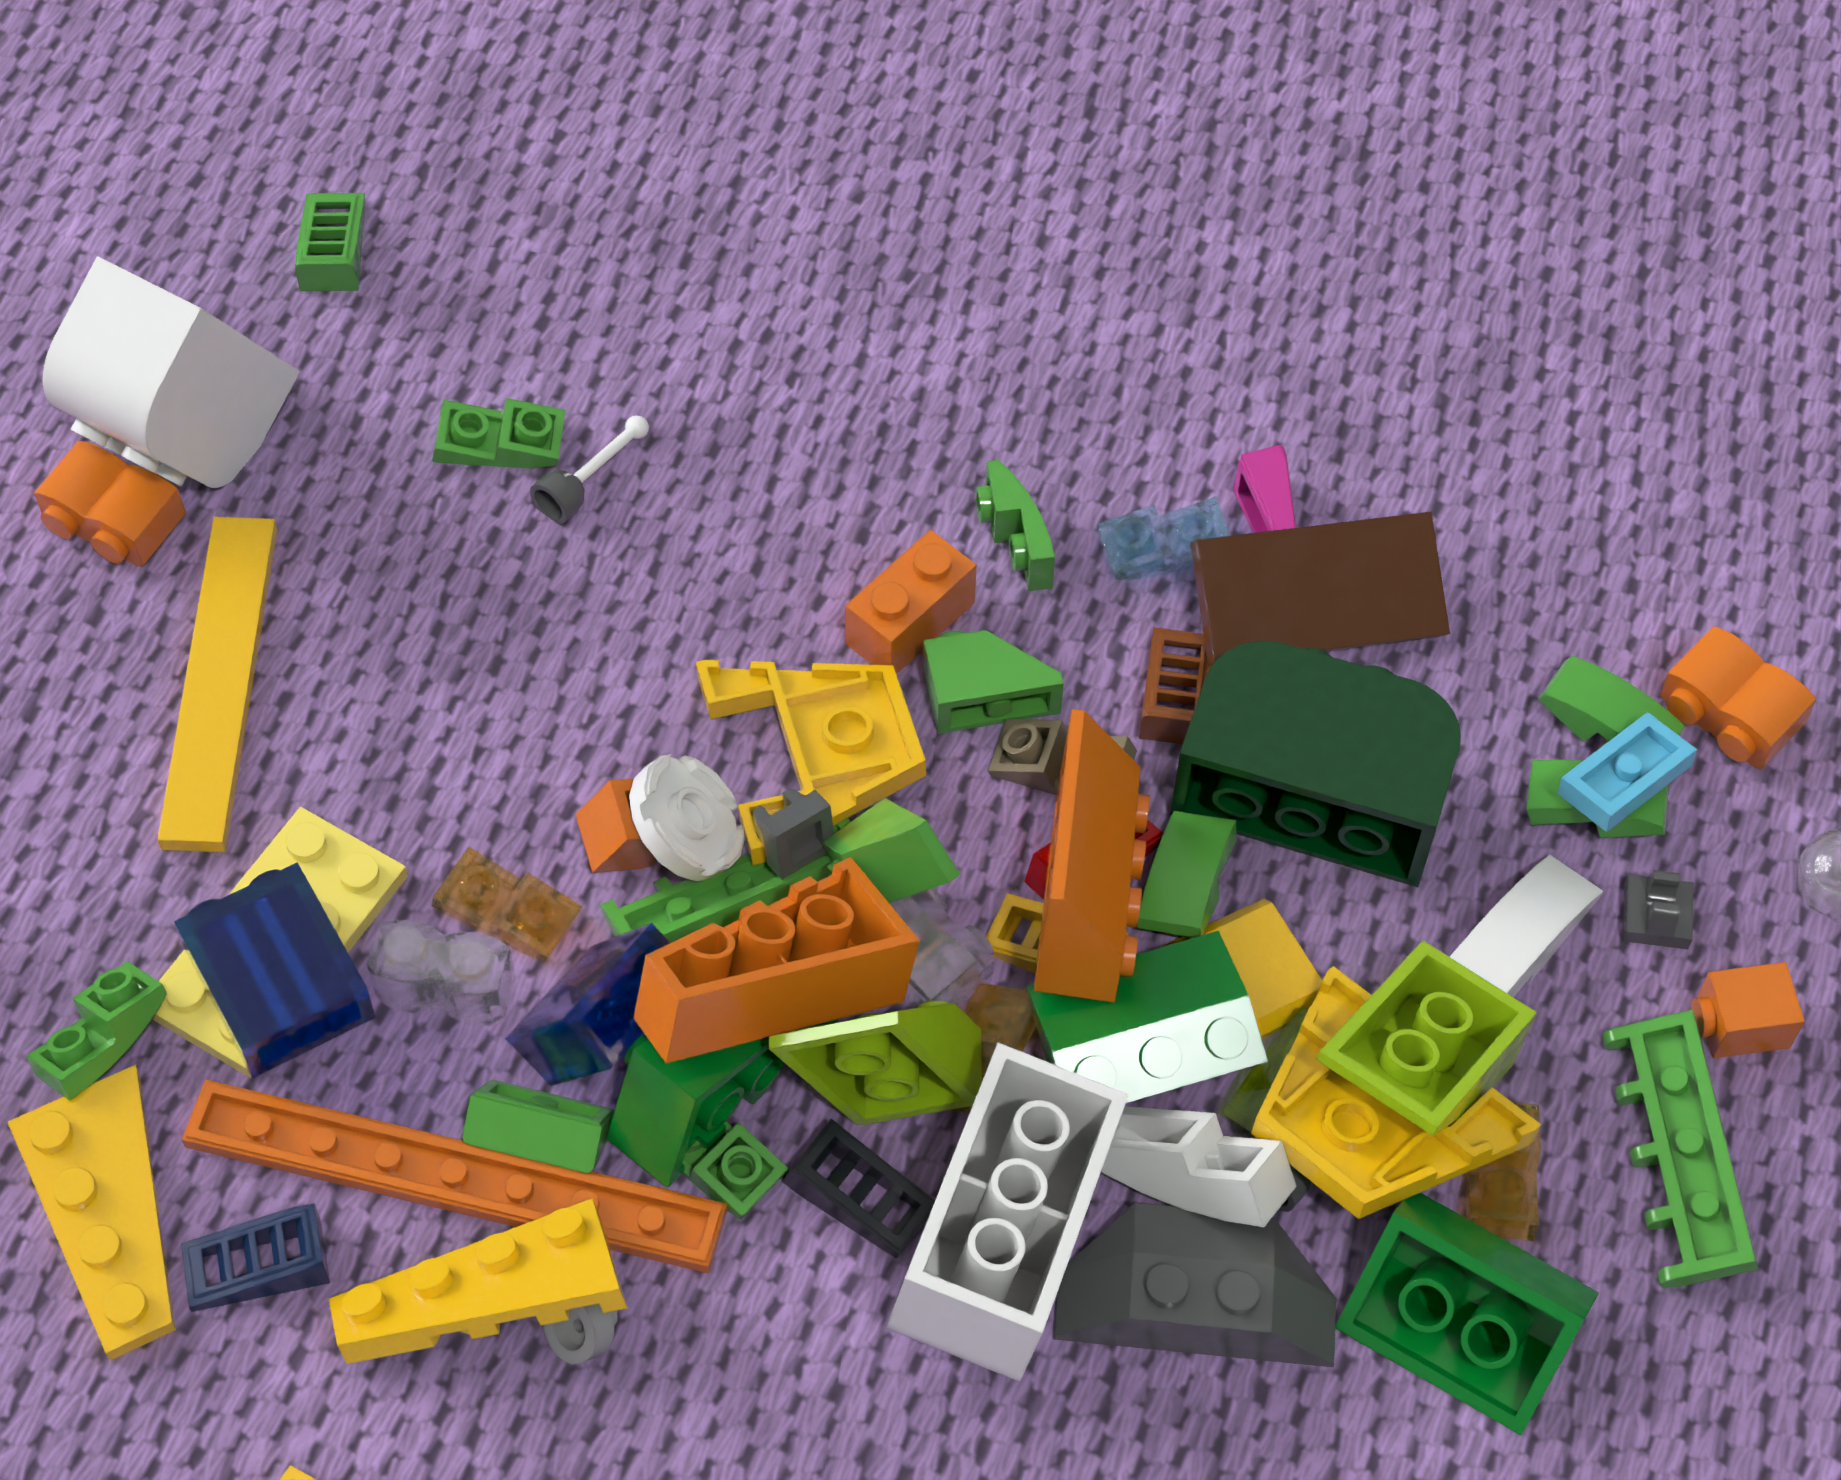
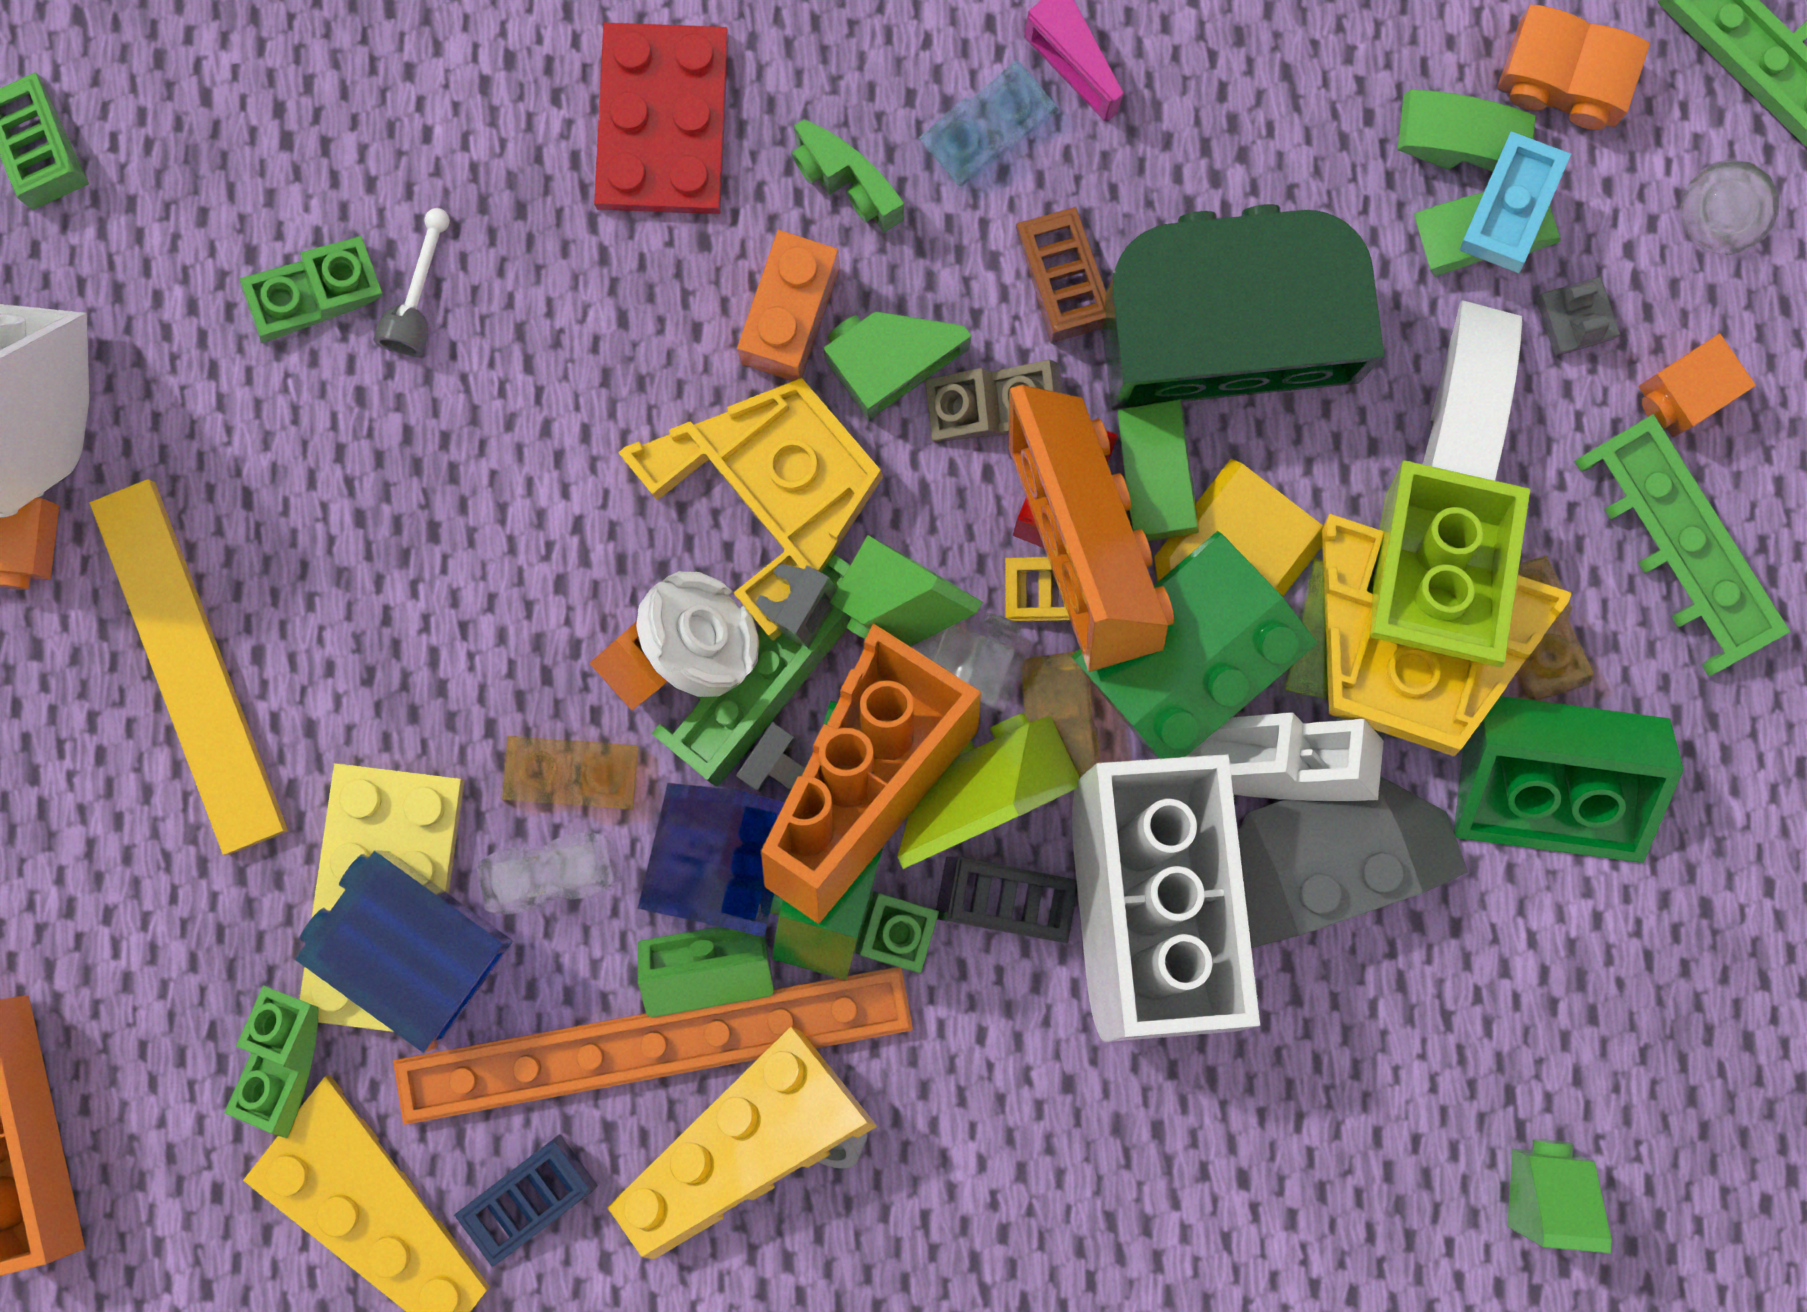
camera: 25 degrees left, 25 degrees up
(875, 426) = (661, 118): none -> red plate
(1322, 585) = (1159, 125): reddish brown tile -> none

